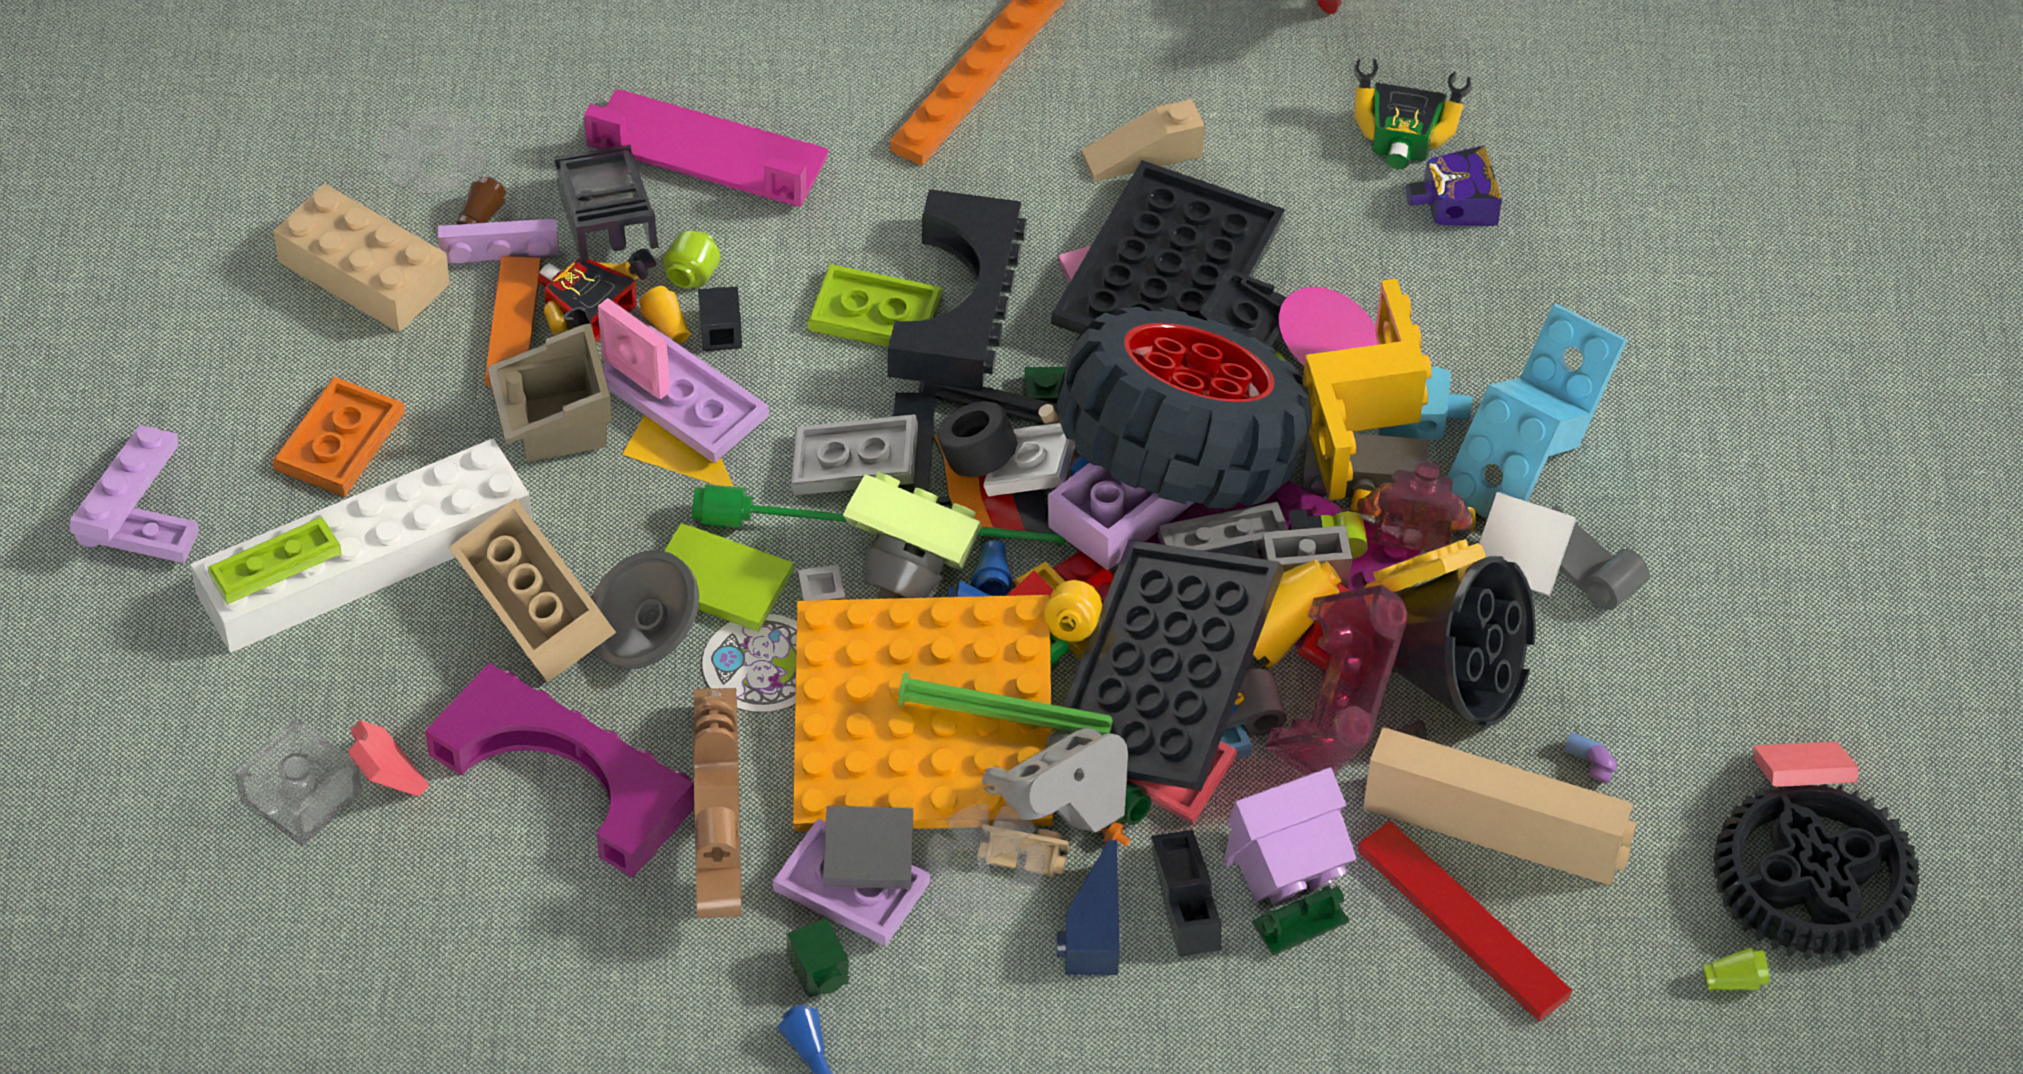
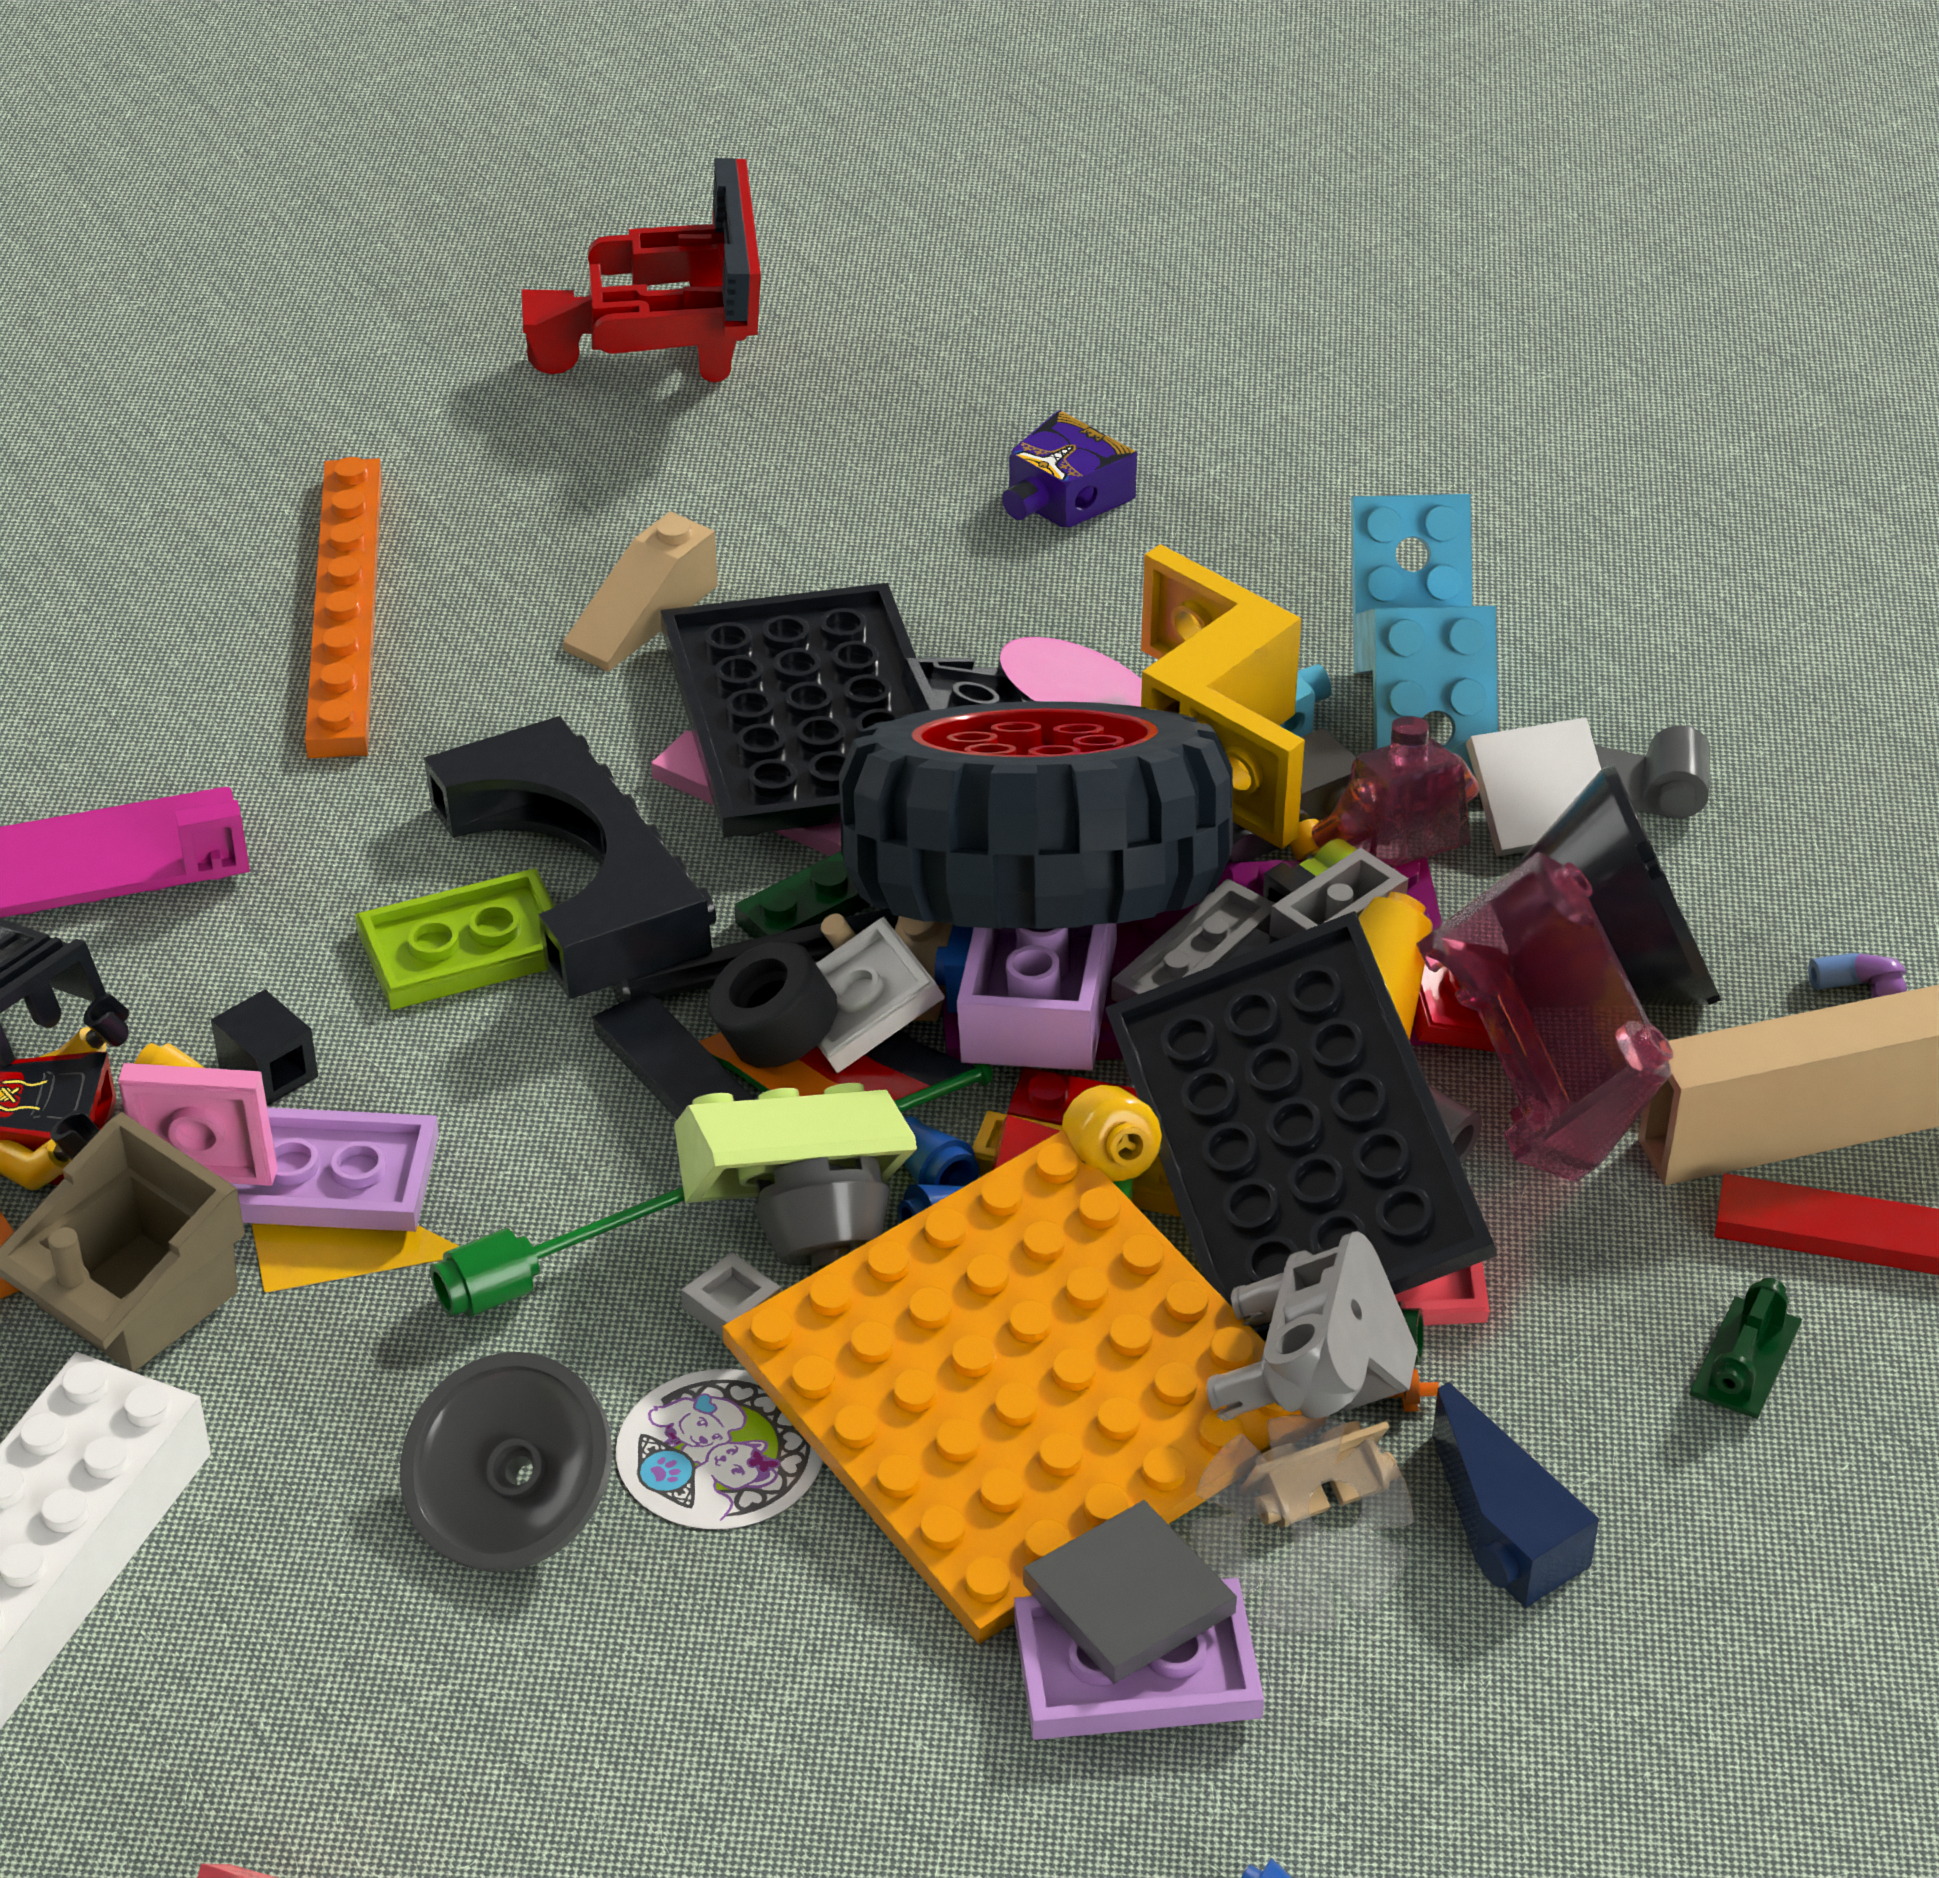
camera: 35 degrees left, 10 degrees down
(506, 715) = (423, 1725): magenta arch -> none
(532, 590) = (315, 1525): tan brick -> none
(691, 259) = (159, 995): lime head -> none
(717, 803) = (803, 1596): medium nougat beam -> none
(731, 577) = (605, 1342): lime tile -> none
(818, 958) = (1199, 1790): dark green brick -> none
(841, 453) = (607, 1115): light grey tile -> none
(1000, 706) = (1139, 1298): bright green axle -> none
(1187, 893) = (1583, 1404): black slope -> none
(1290, 837) = (1676, 1248): lavender piece -> none
(1404, 119) = (929, 434): torso -> none
(1428, 566) = (1506, 839): yellow tile -> none

